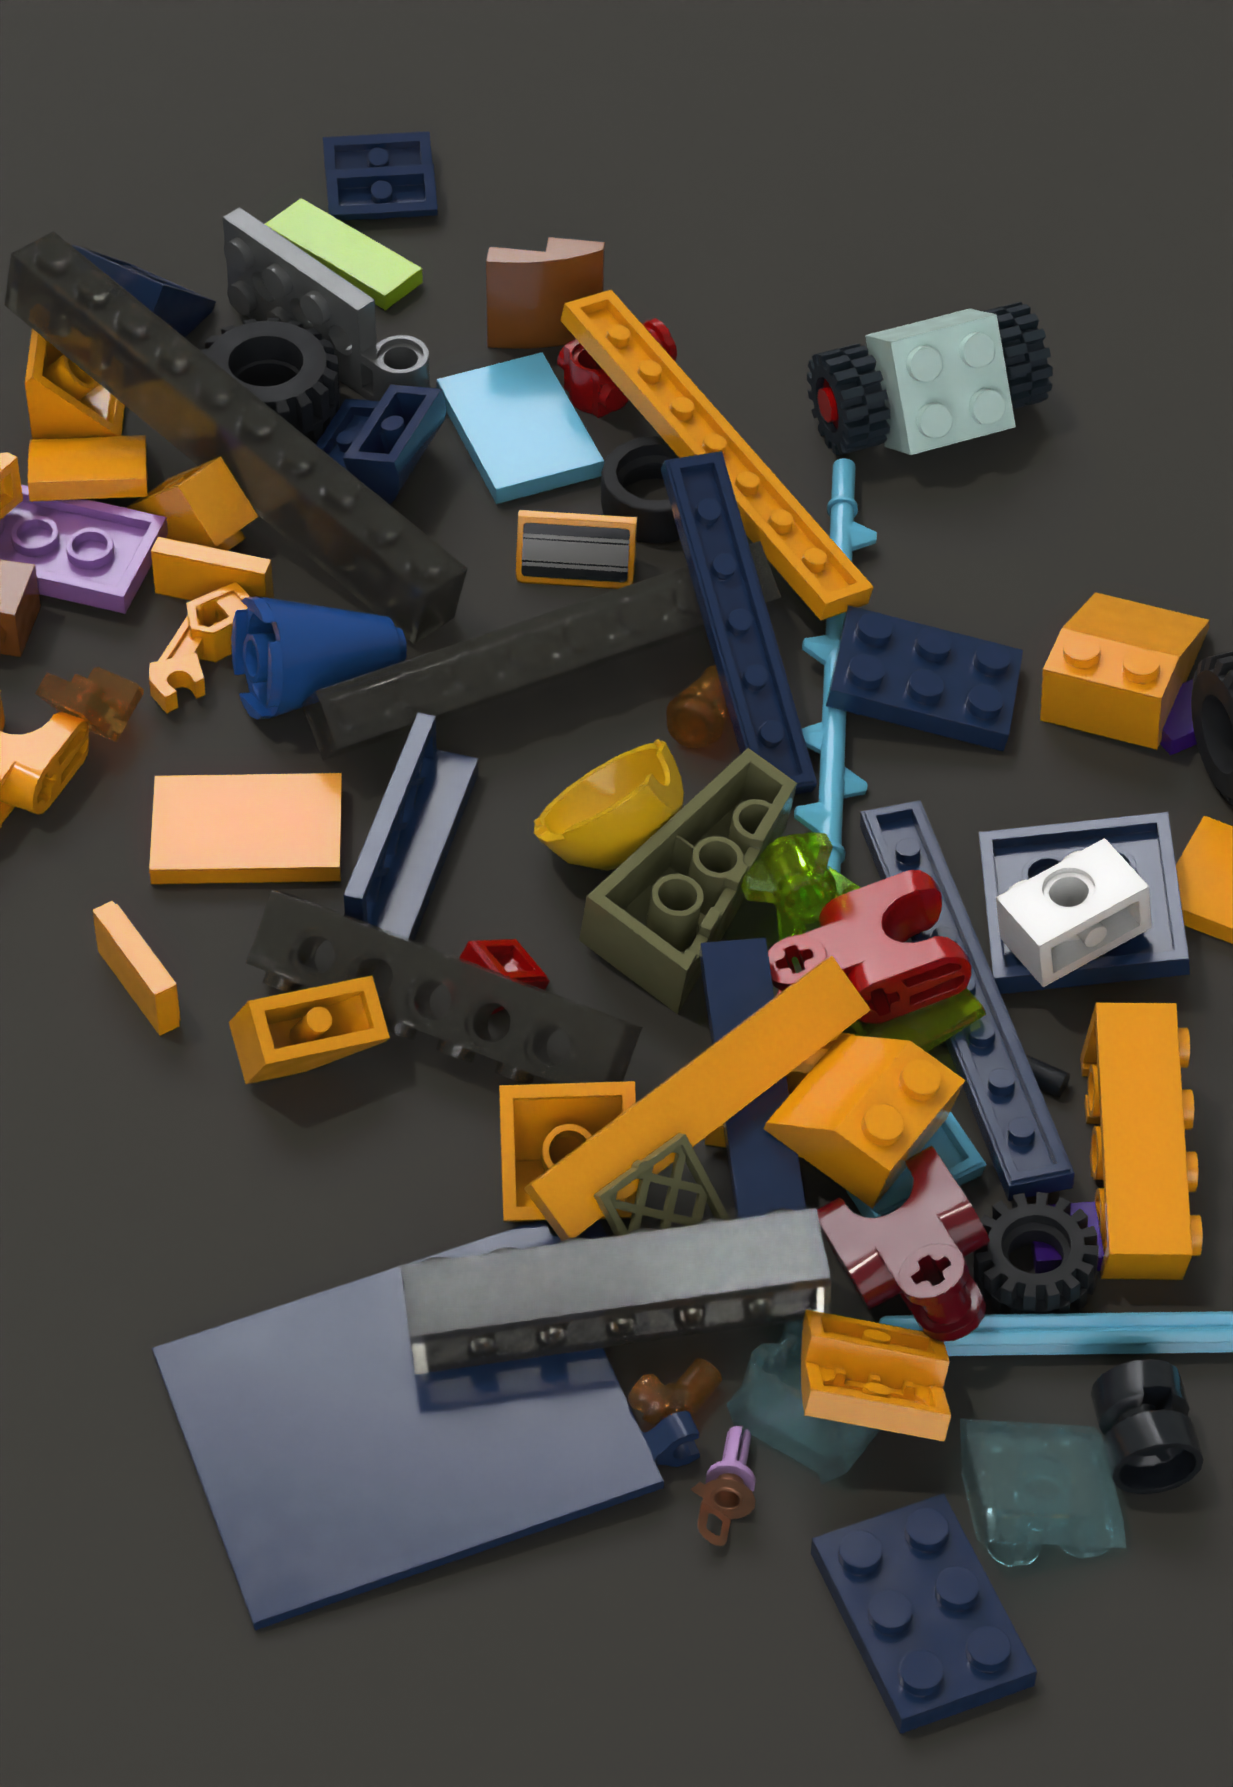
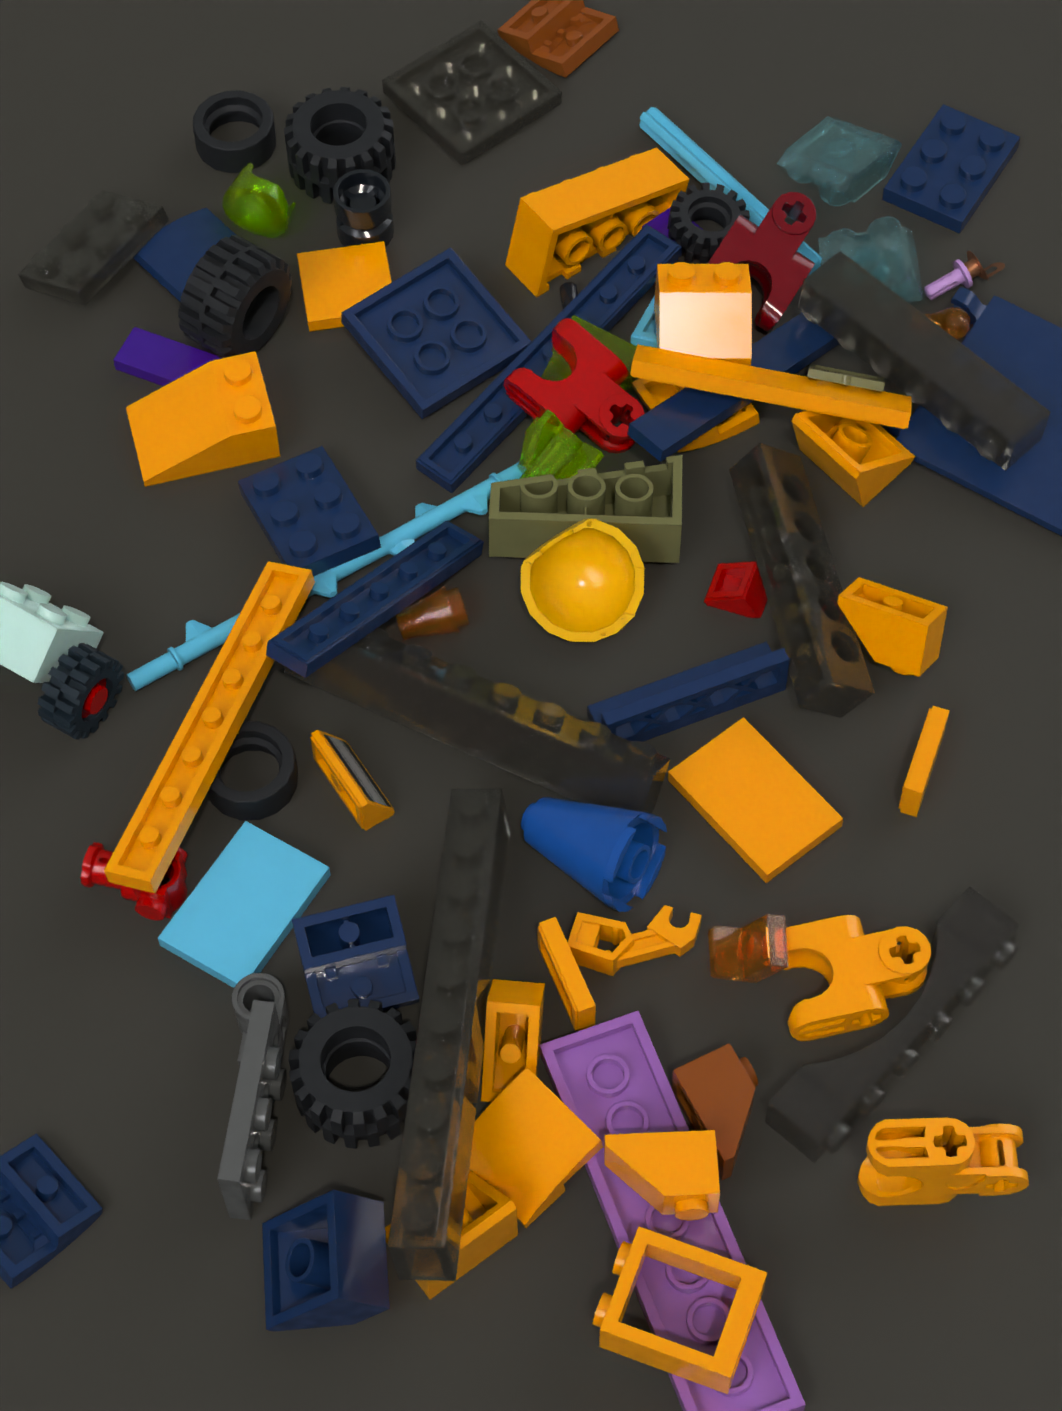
camera: 125 degrees left, 10 degrees up
(348, 253) = (137, 1170): lime tile -> none
(530, 290) = (114, 945): dark orange slope -> none
(874, 1375) = (863, 226): light orange slope -> none
(1074, 912) = (461, 283): white brick -> none
(1146, 1426) = (771, 125): black wheel -> none

